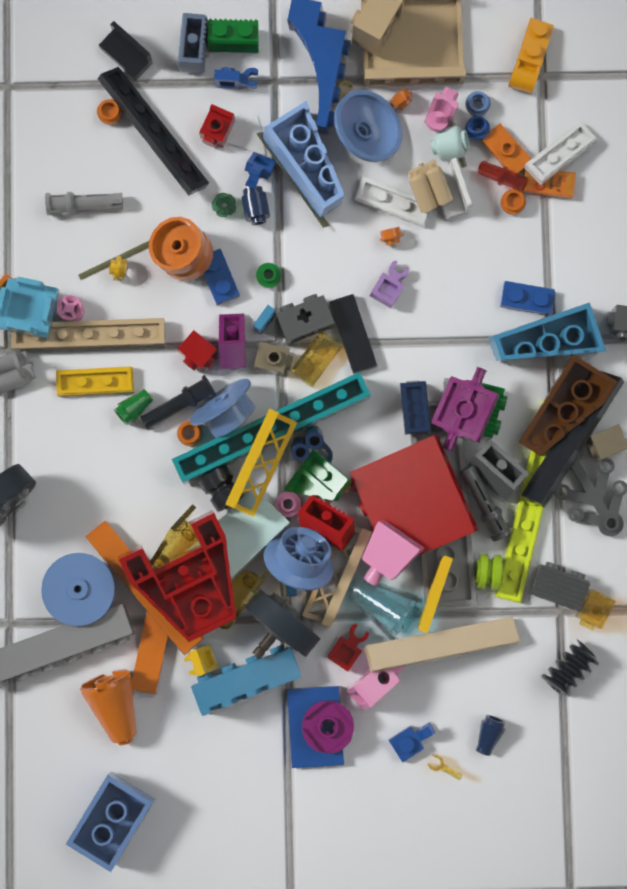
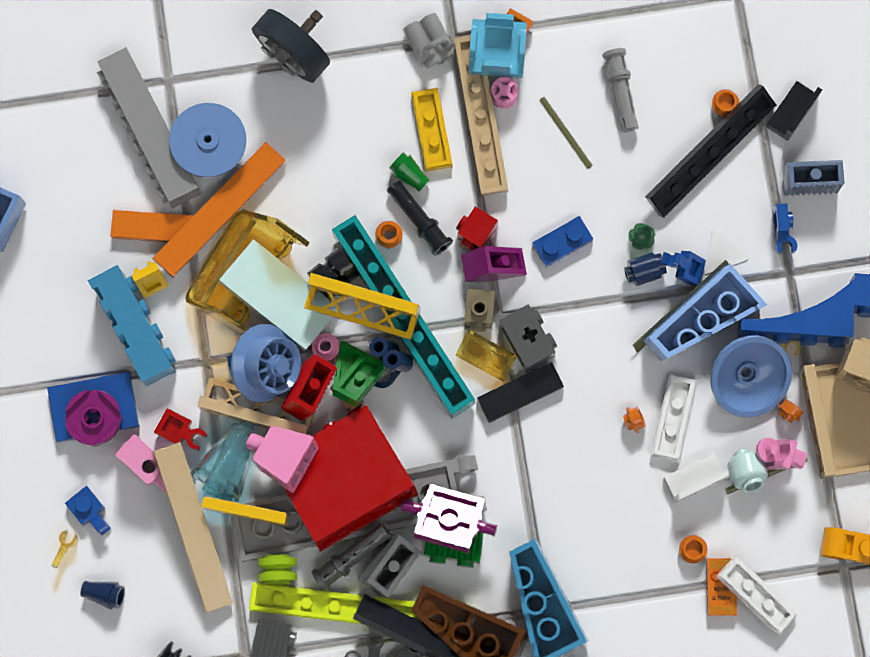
camera: 90 degrees right, 5 degrees down
(112, 704) = (93, 193): orange cone -> none
(118, 268) = (555, 134): yellow plate -> none
(181, 249) = (583, 195): orange wheel -> none
(191, 588) = (222, 254): red wedge -> none
(217, 137) = (730, 225): red brick -> none
(226, 409) = (416, 264): medium blue piece -> none
(233, 35) = (829, 219): green brick -> none
(264, 319) = (521, 294): dark azure tile -> none
(268, 283) = (567, 301): green plate -> none
(281, 624) = (193, 352): black wheel -> none
(388, 286) = (576, 423): medium lavender plate -> none
(415, 408) = (444, 465): dark blue plate -> none
(429, 186) = (693, 451): tan piece -> none
(477, 122) = (775, 494): blue plate -> none
(482, 98) = (807, 496): medium blue plate -> none
(503, 176) = (719, 533): clear red axle -> none
(506, 149) = (751, 534): orange plate -> none
(527, 298) = (587, 578): blue plate -> none

